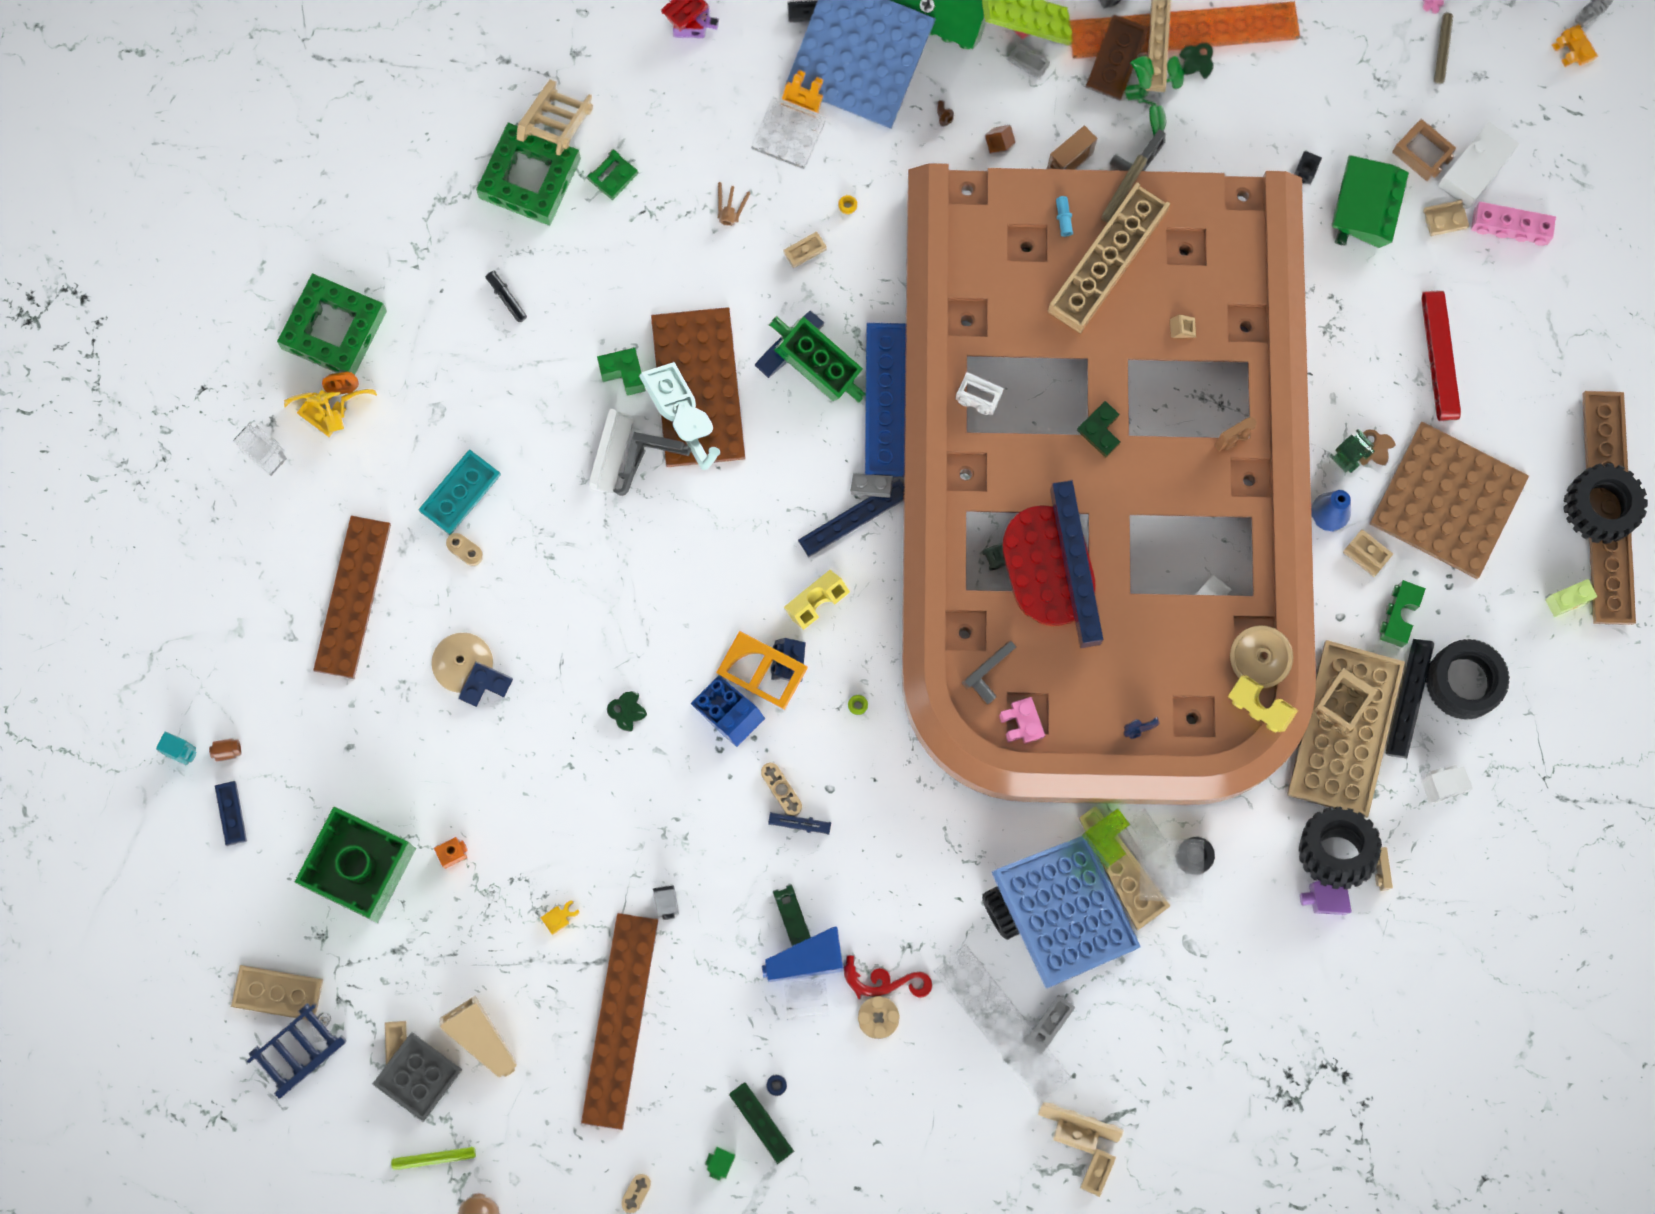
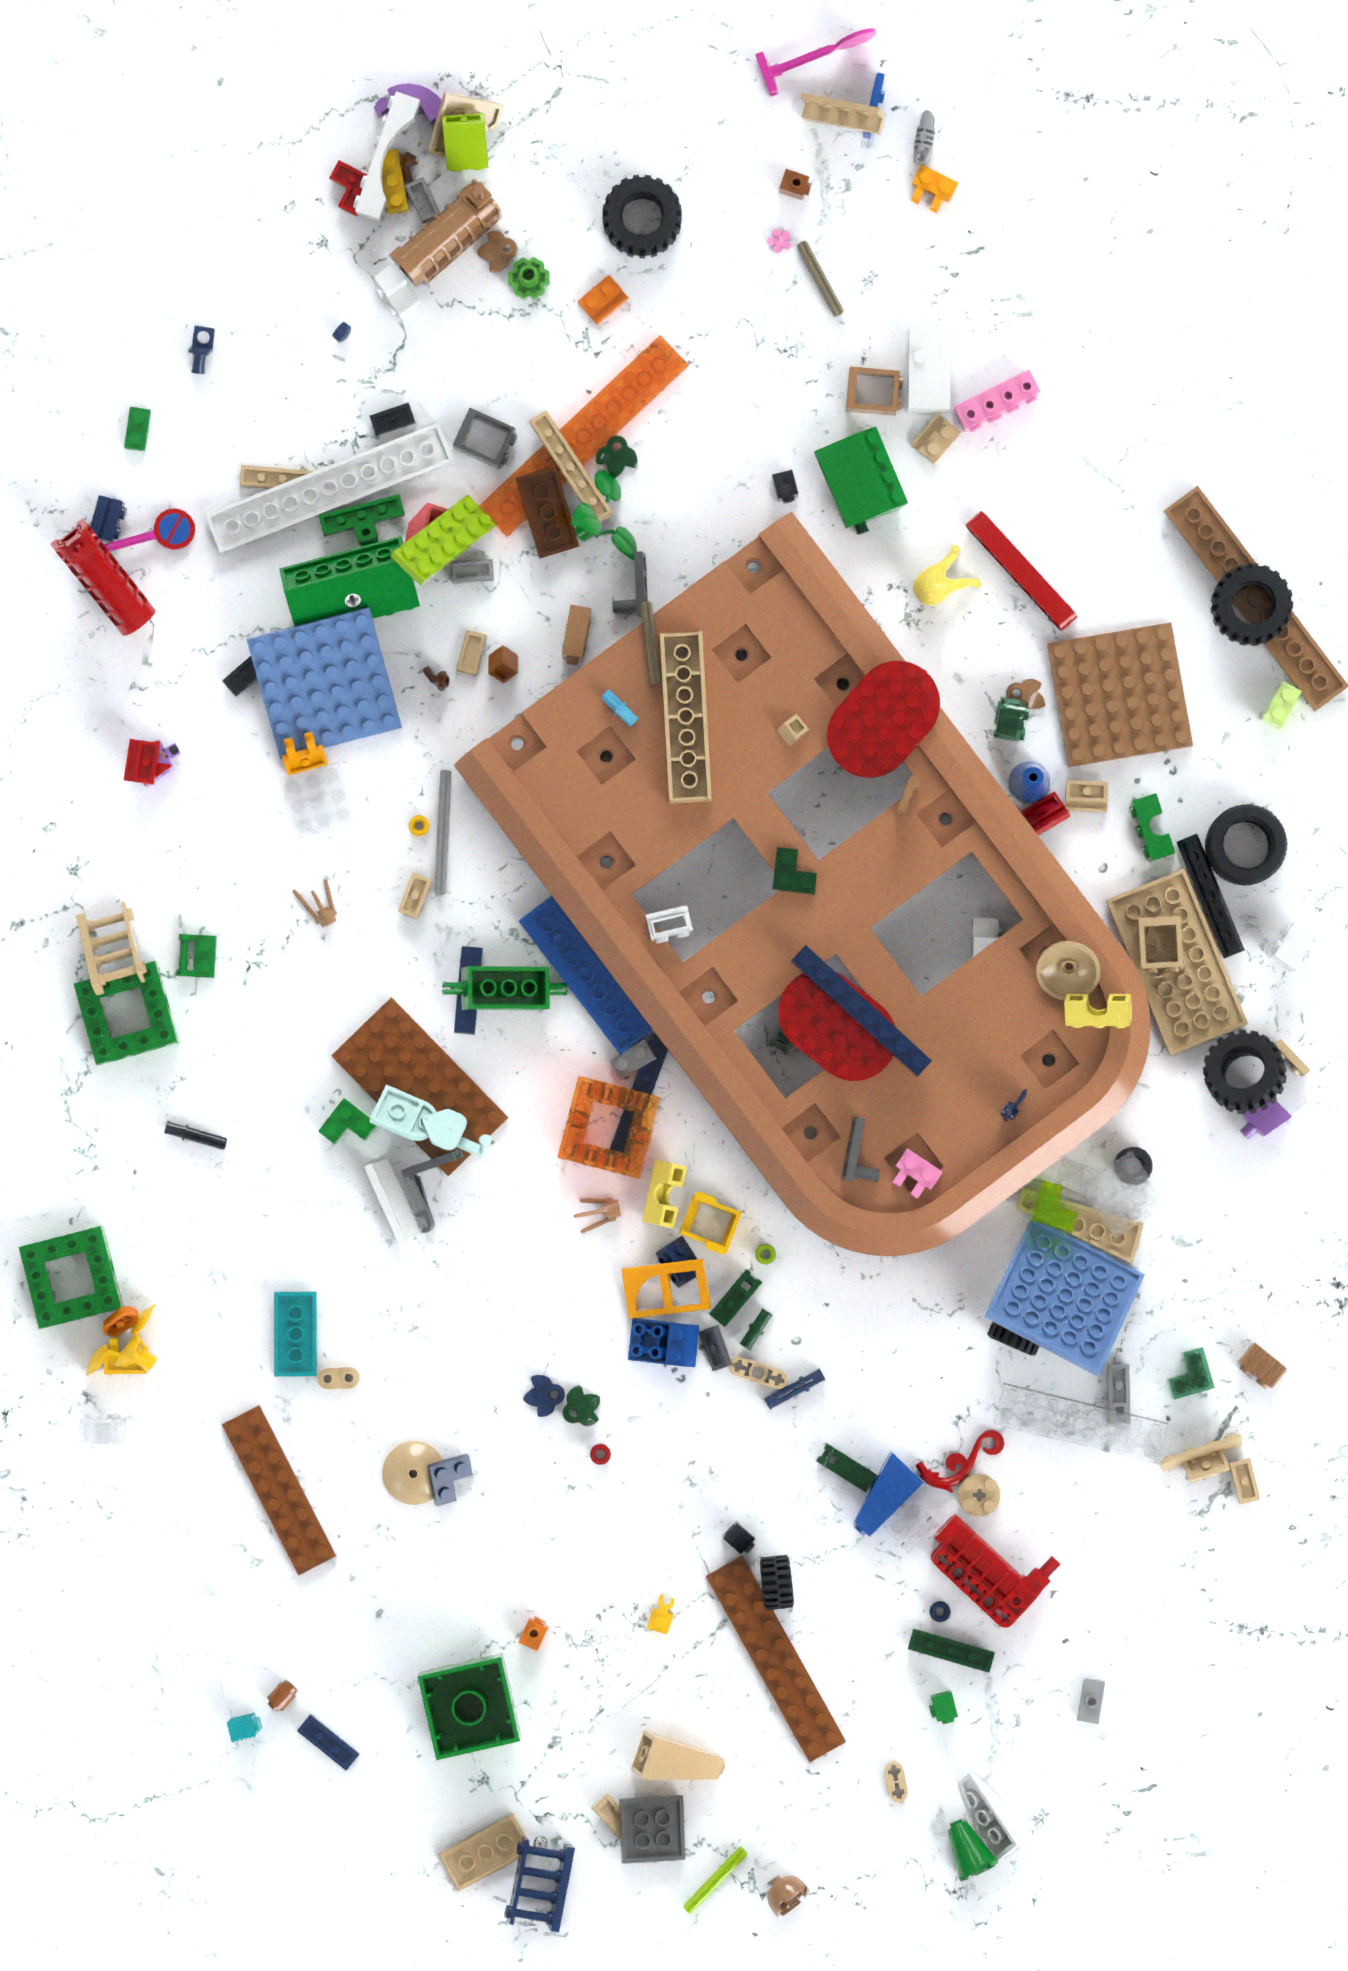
camera: 35 degrees left, 10 degrees up
(604, 678) = (540, 1395): none -> dark blue plate
(609, 751) = (600, 1461): none -> red plate
(667, 958) = (776, 1582): none -> black tyre
(763, 744) = (715, 1348): none -> dark grey plate
(767, 579) = (609, 1209): none -> medium nougat plant
(805, 755) = (756, 1329): none -> dark green pin
(808, 719) = (735, 1298): none -> dark green plate
(833, 541) = (645, 1114): none -> clear orange brick
(839, 1081) = (988, 1572): none -> red piece
(845, 628) = (698, 1198): none -> yellow piece
(861, 222) = (442, 832): none -> light grey axle
(983, 115) = (471, 652): none -> tan tile
(1120, 1058) = (1196, 1377): none -> clear green brick
(1180, 1091) = (1262, 1366): none -> medium nougat brick
(1259, 368) = (883, 719): none -> red plate
(1329, 542) = (1046, 813): none -> red plate
(1365, 316) = (932, 584): none -> light yellow hair

